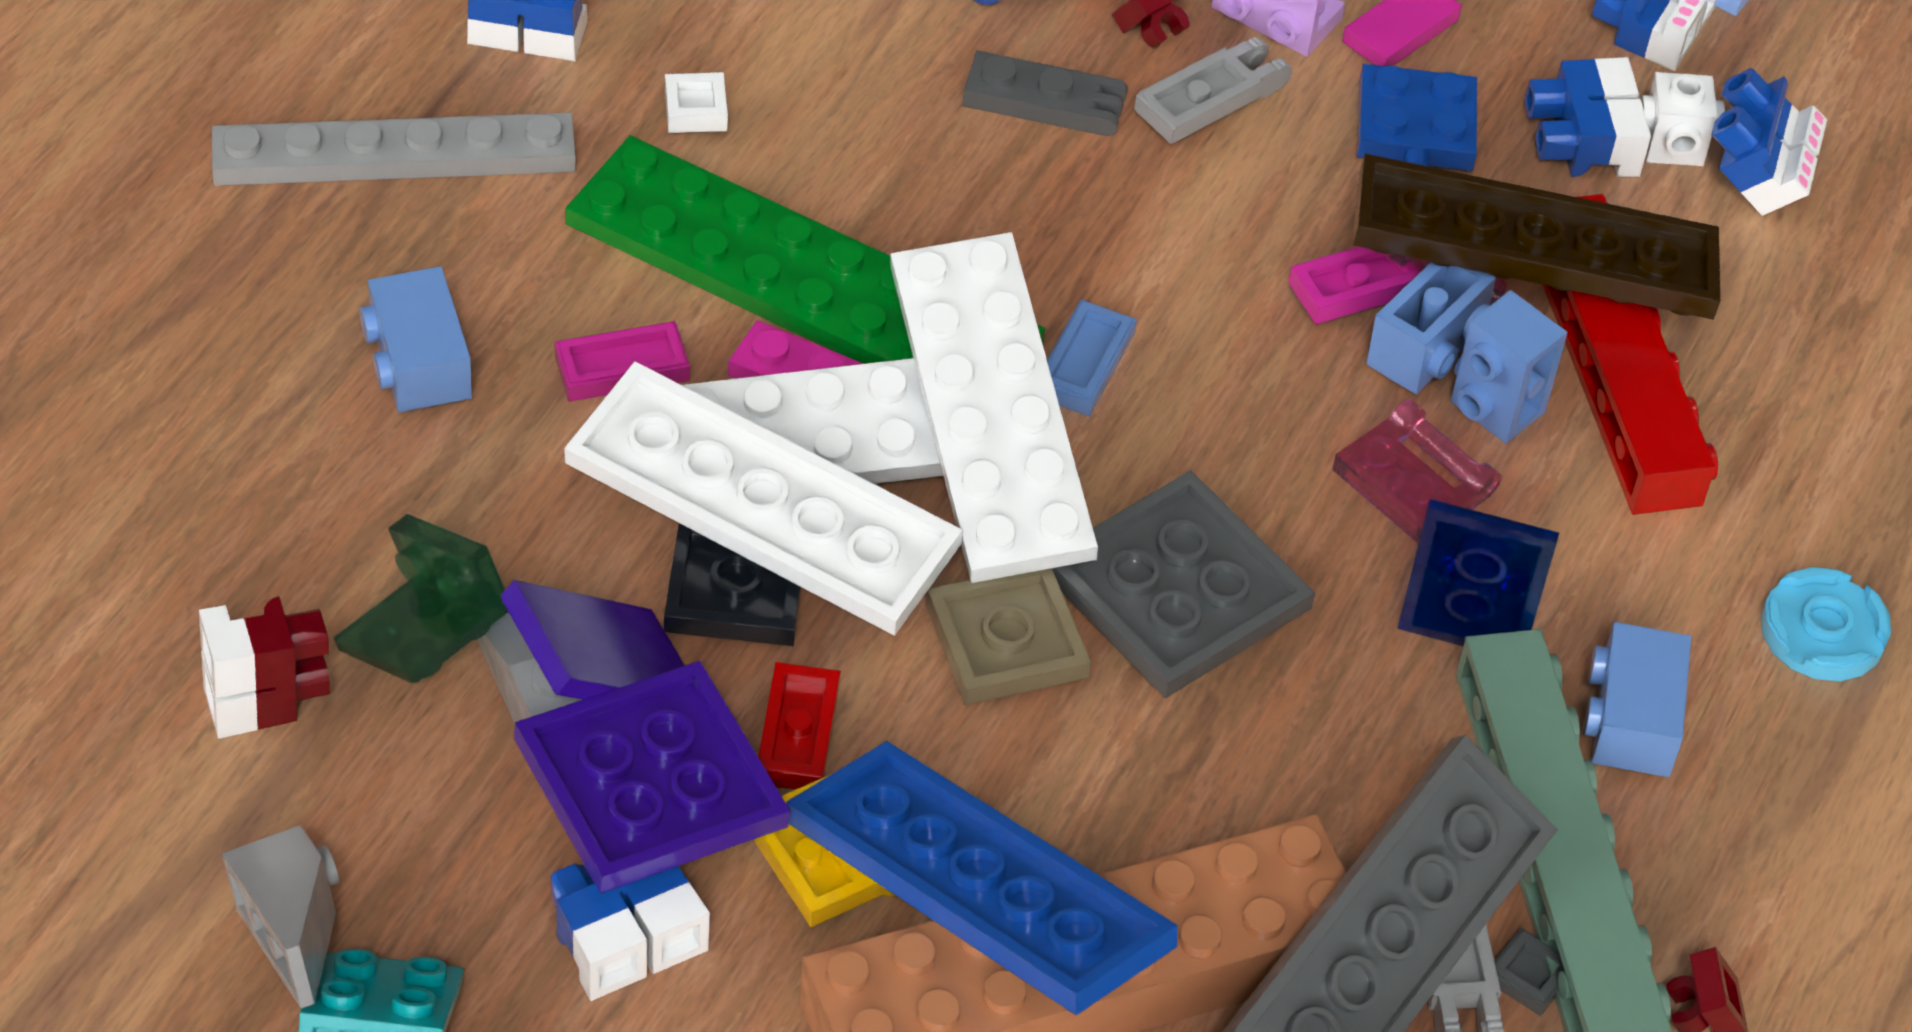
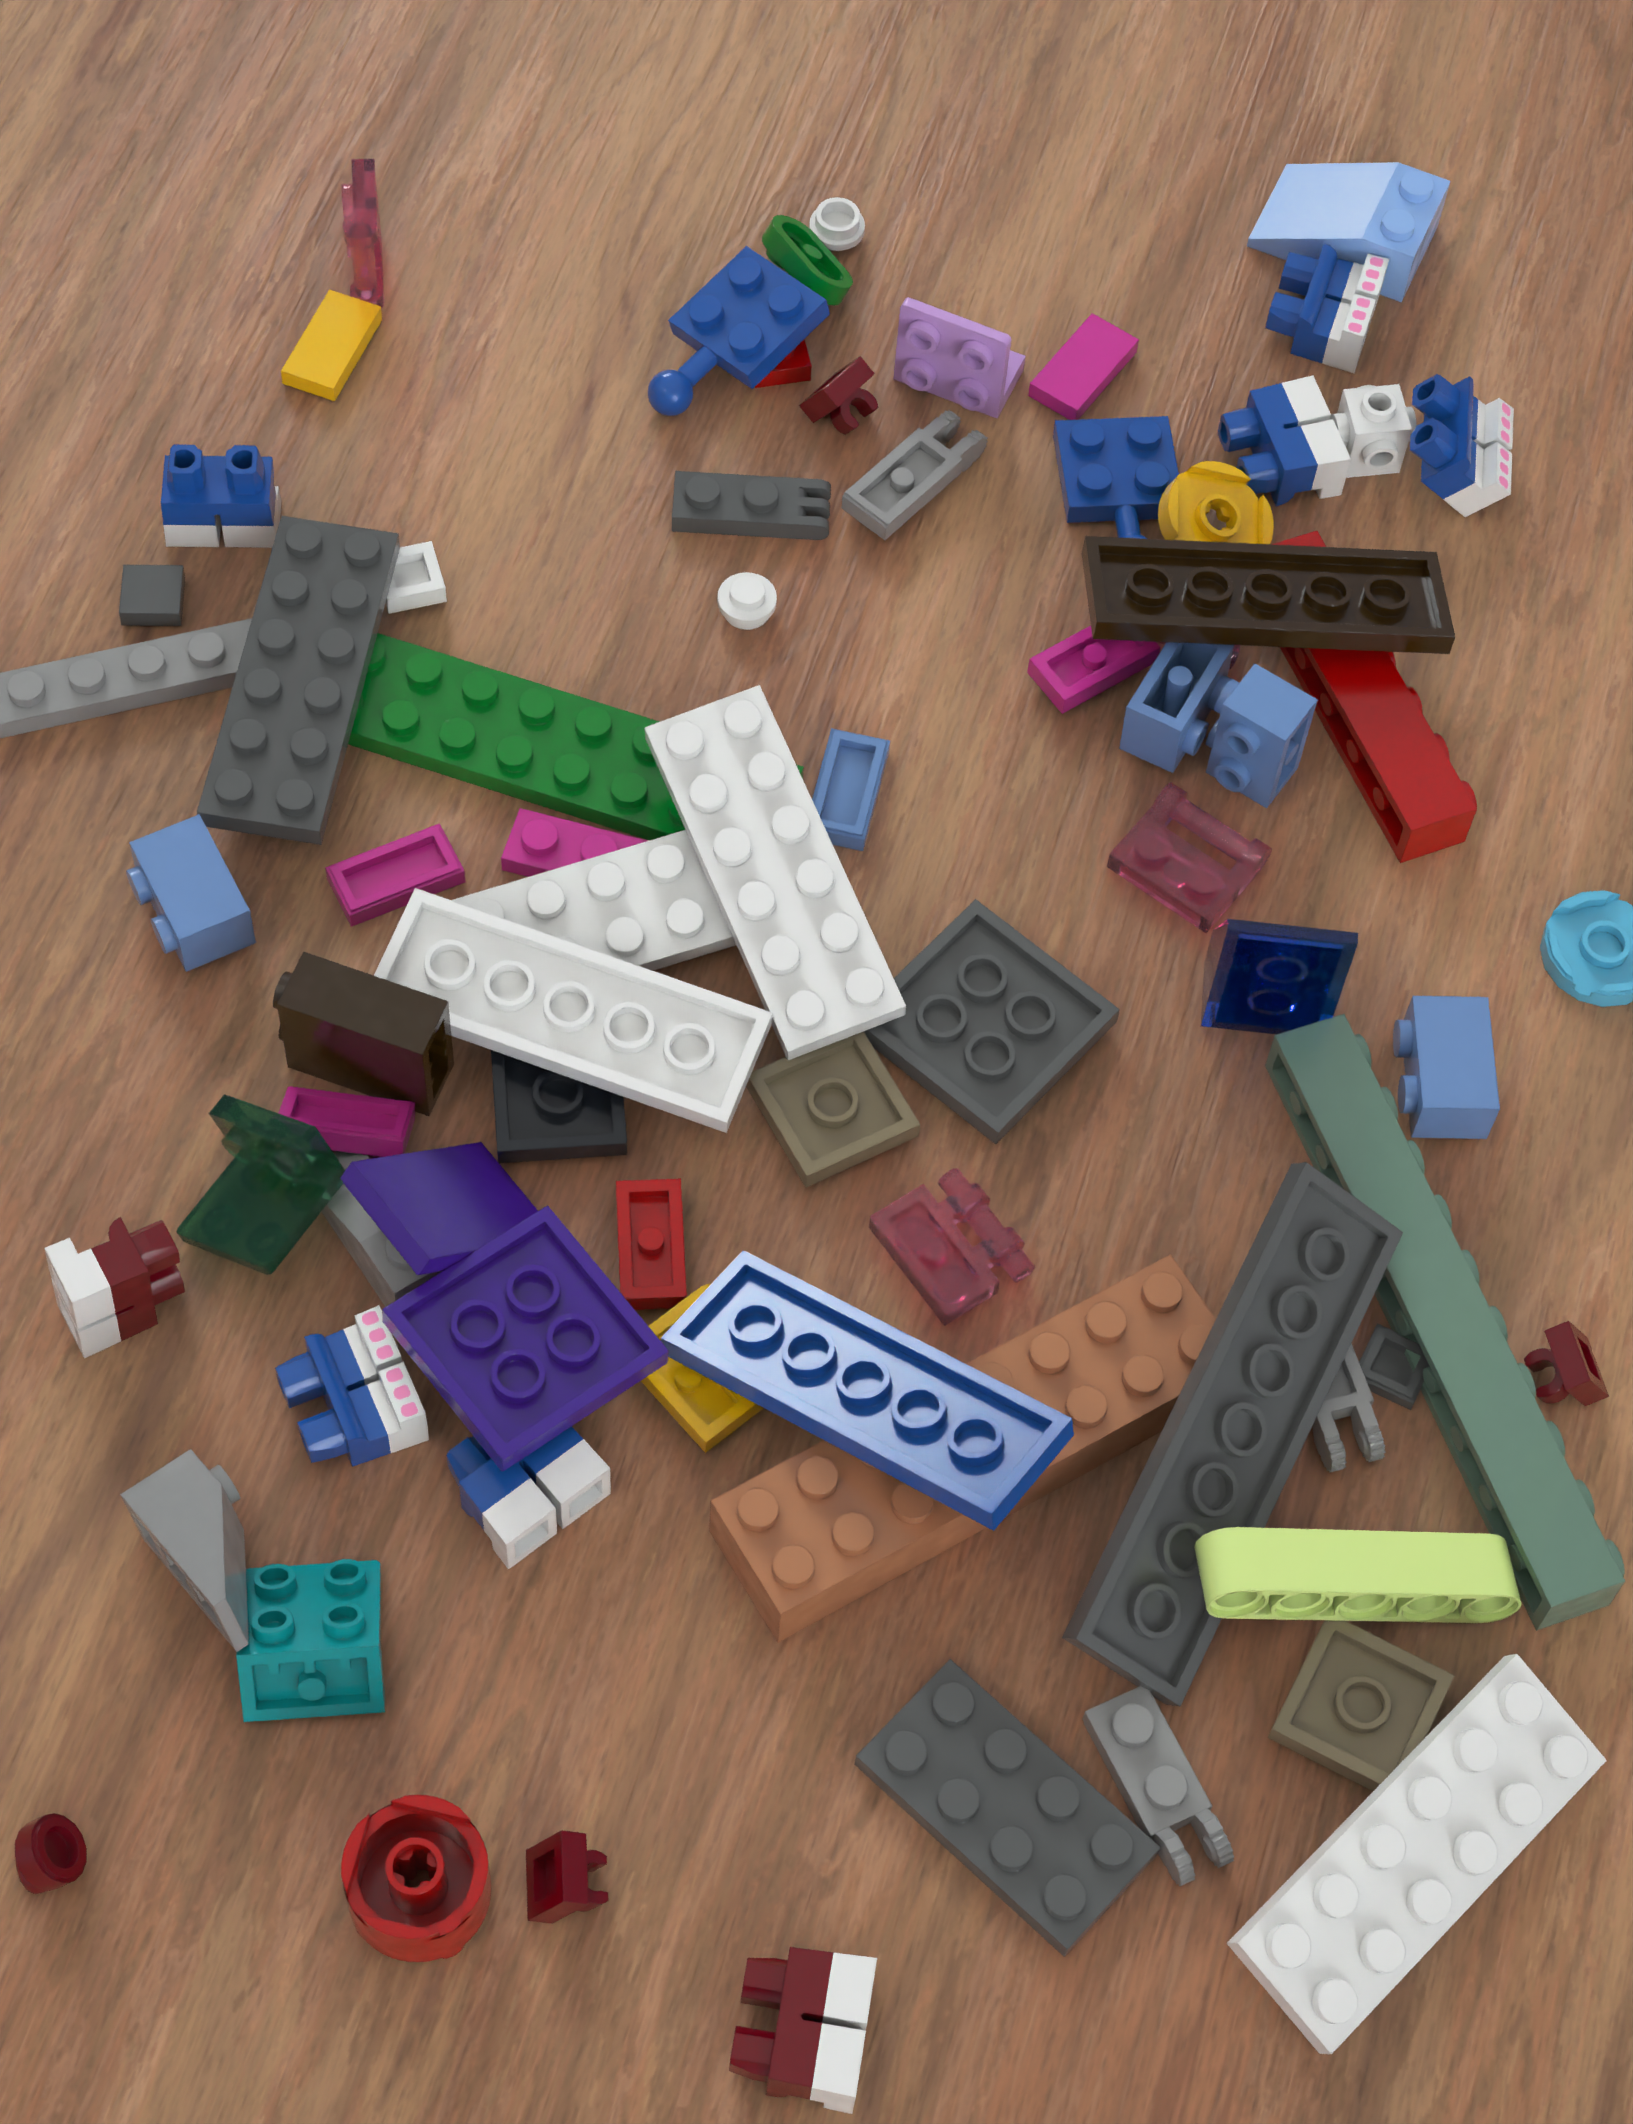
camera: 10 degrees left, 10 degrees up
(443, 81) = (152, 595): none -> dark grey tile
(485, 809) = (364, 1387): none -> blue hips
(534, 563) = (353, 1121): none -> dark pink tile
(558, 485) = (364, 1032): none -> dark brown brick
(566, 171) = (299, 680): none -> dark grey plate
(1022, 175) = (747, 600): none -> white plate
(1083, 787) = (938, 1256): none -> clear pink plate
(1506, 141) = (1219, 488): none -> yellow plate

